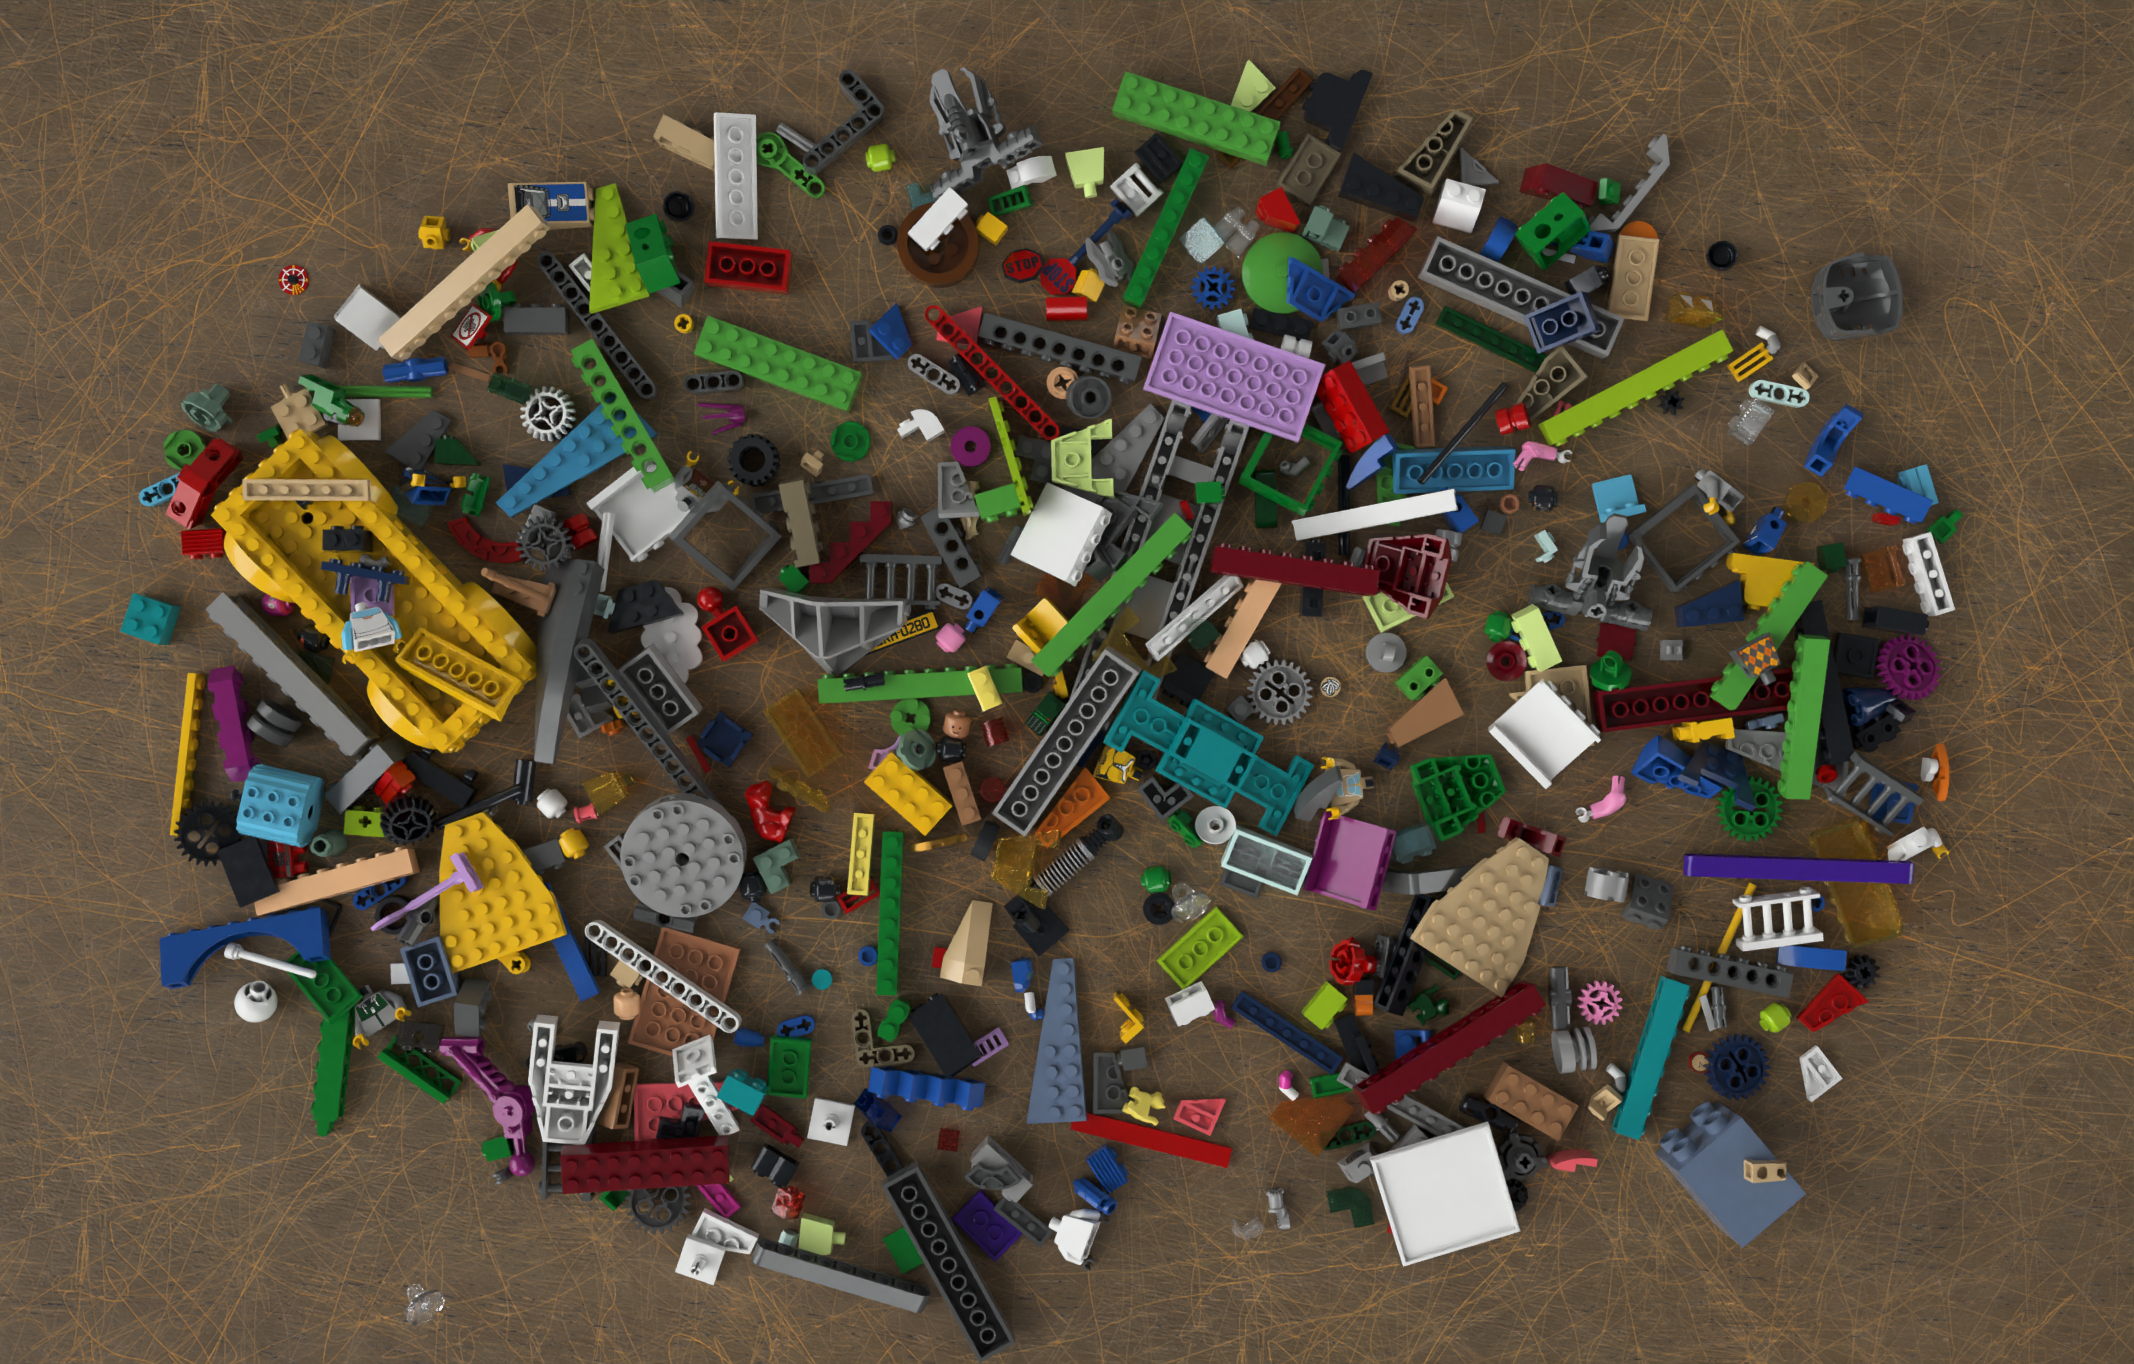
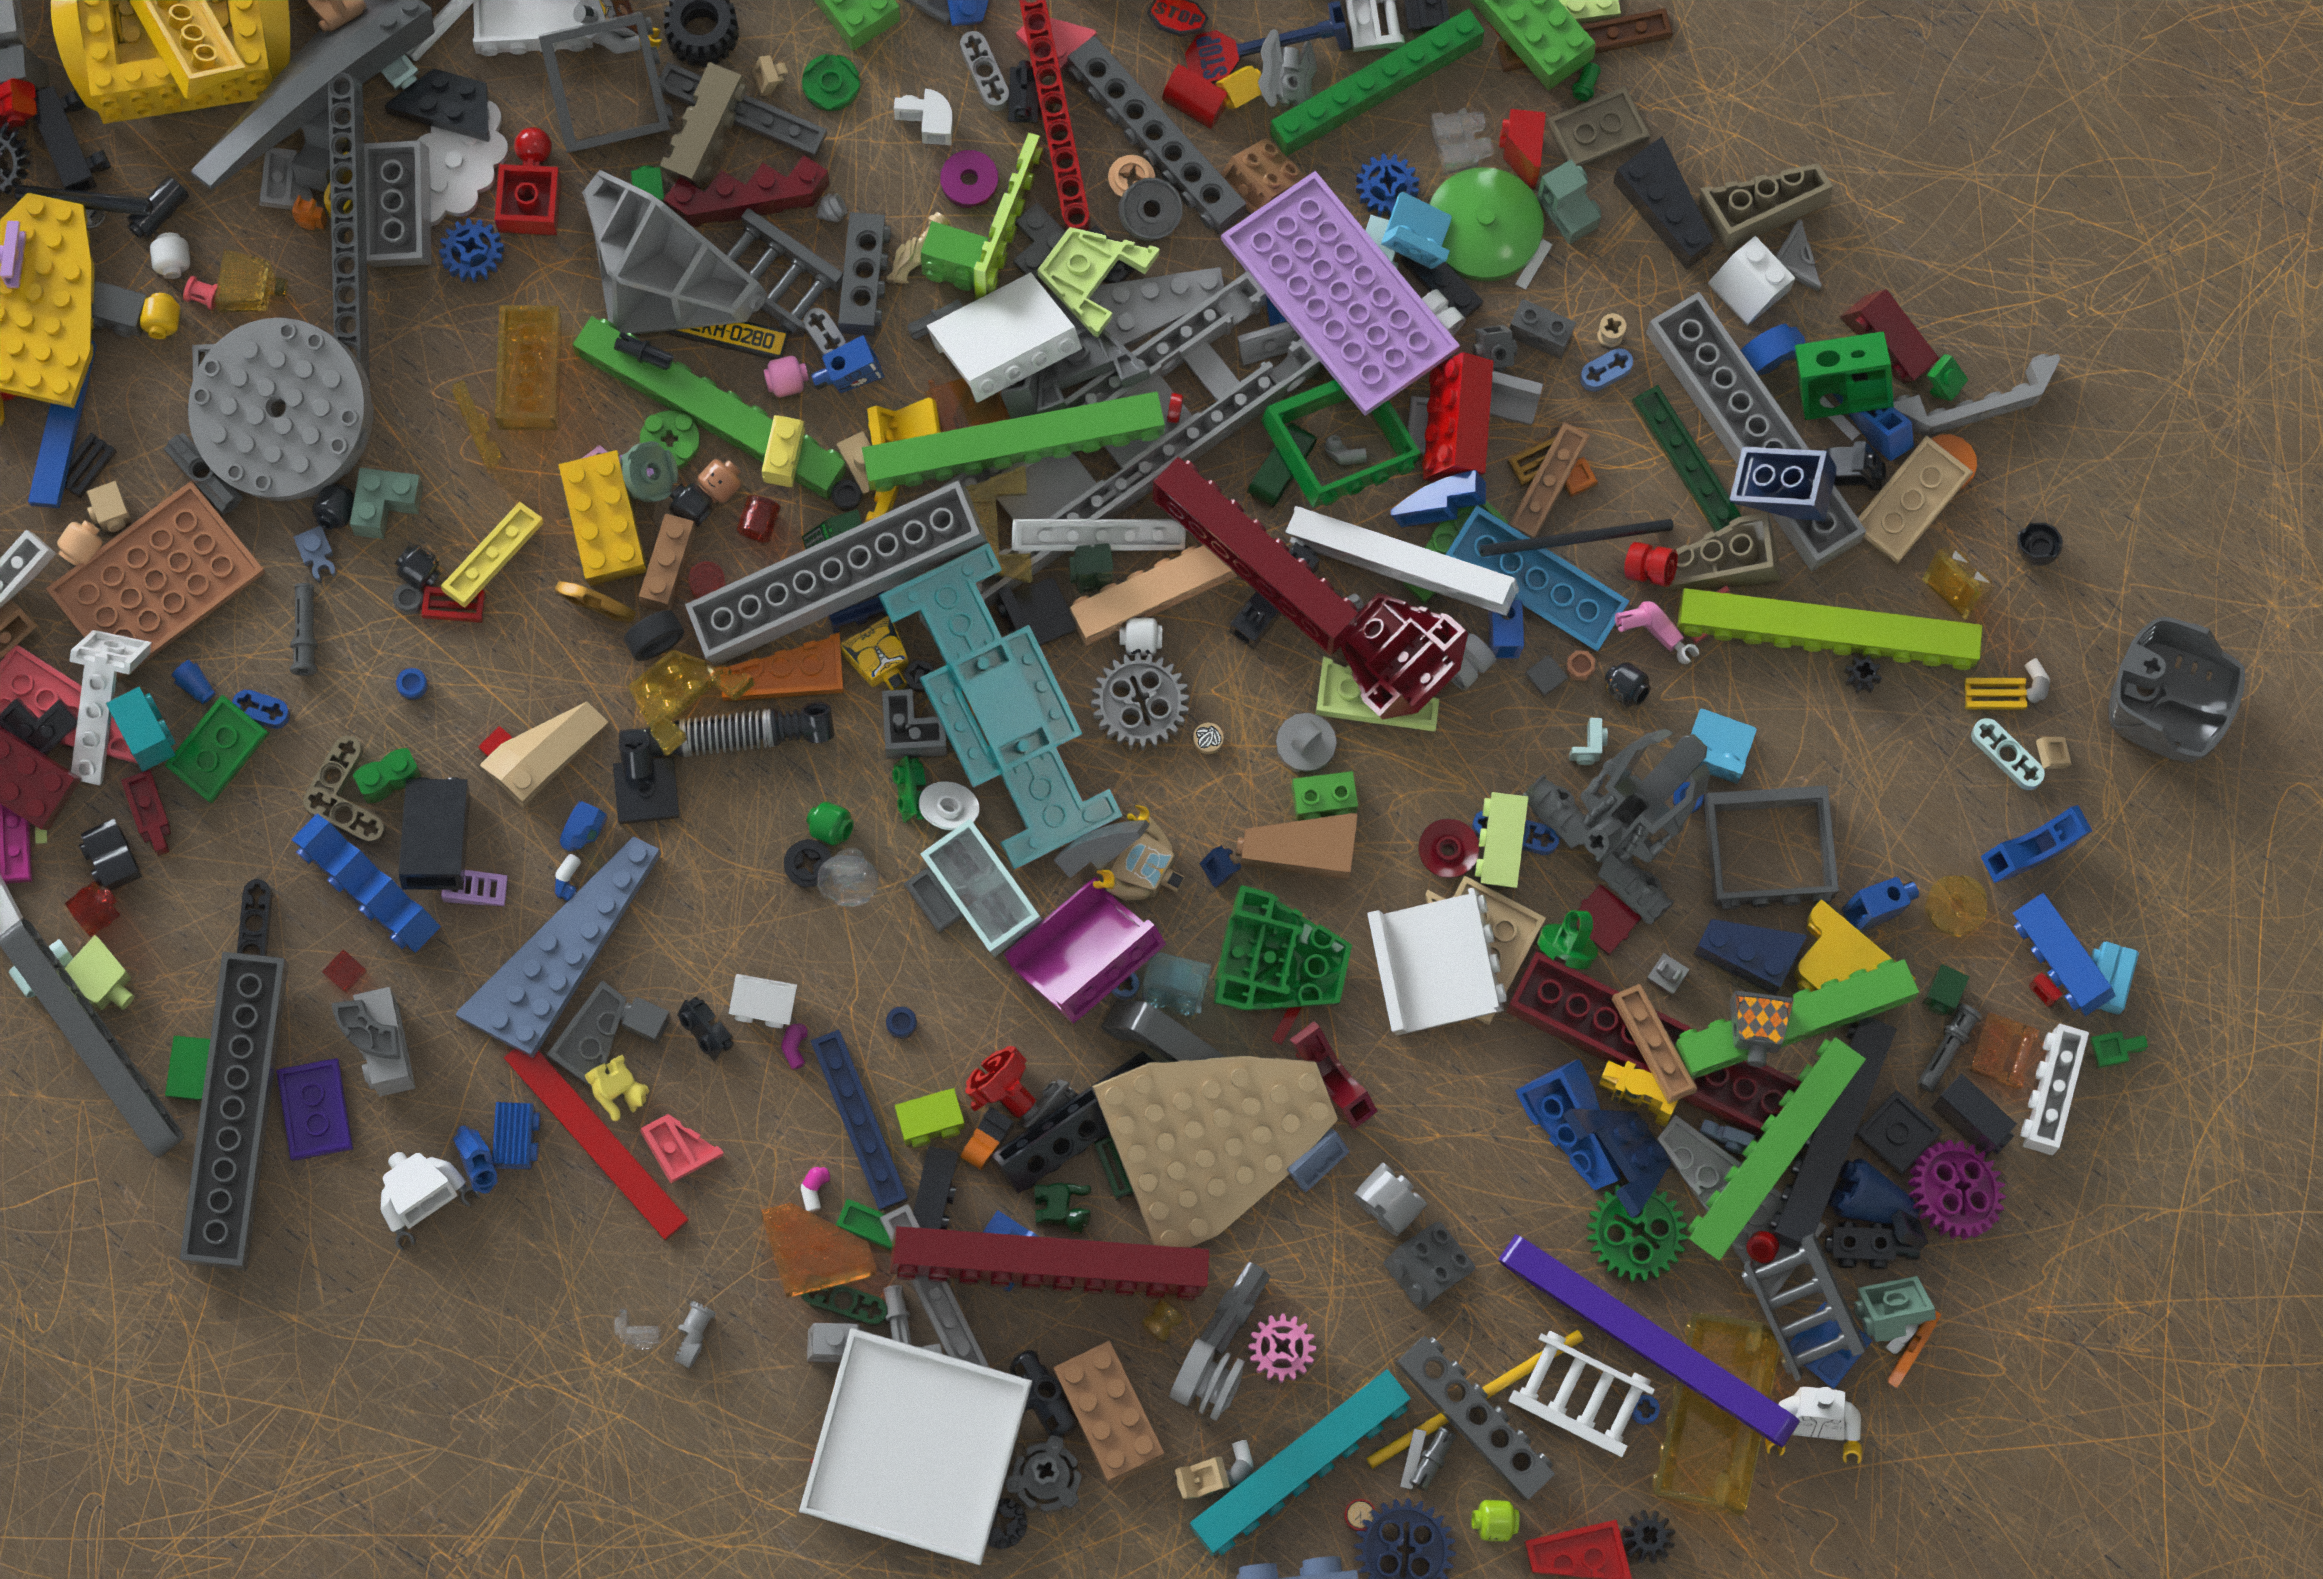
camera: 30 degrees right, 15 degrees down
(653, 975) = (142, 522): white beam -> none
(698, 753) = (385, 316): red piece -> none
(716, 674) = (464, 240): none -> blue gear
(724, 739) = (429, 316): dark blue panel -> none
(767, 822) = (408, 440): red animal -> none
(822, 979) = (335, 673): teal tile -> none
(831, 1121) = (218, 851): white tile -> none
(877, 1110) = (285, 873): clear blue slope -> none
(890, 912) = (476, 646): green brick -> none
(953, 493) = (909, 210): light grey wing -> none
(1023, 1221) = (363, 1129): dark grey plate -> none
(1129, 1028) = (673, 978): yellow bracket -> none
(1174, 1041) = (696, 1017): none -> black hinge
(1199, 948) = (824, 946): lime tile -> none
(1202, 240) = (1412, 122): clear light blue piece -> none
(1209, 492) = (1215, 400): green brick -> none
(1239, 709) = (1076, 686): dark grey brick -> none
(1252, 307) = (1417, 231): none -> medium azure bracket
(1314, 292) = (1506, 263): blue wing -> none
(1335, 104) = (1680, 76): black brick -> none
(1343, 501) = (1380, 525): black axle -> none
(1351, 1199) = (796, 1392): clear green plate -> none
(1376, 254) = (1611, 272): clear red slope -> none
(1498, 626) = (1466, 800): green head -> none
(1568, 1159) = (1100, 1514): coral slope -> none
(1608, 805) = (1460, 1109): bright pink arm -> none
(1699, 703) = (1654, 1043): none -> medium nougat tile
(1718, 491) = (1854, 816): light grey torso -> none
(1749, 421) = (1948, 760): clear brick -> none
(1812, 957) = (1594, 1474): blue slope -> none
(1918, 759) = (1891, 1306): none -> sand green plate

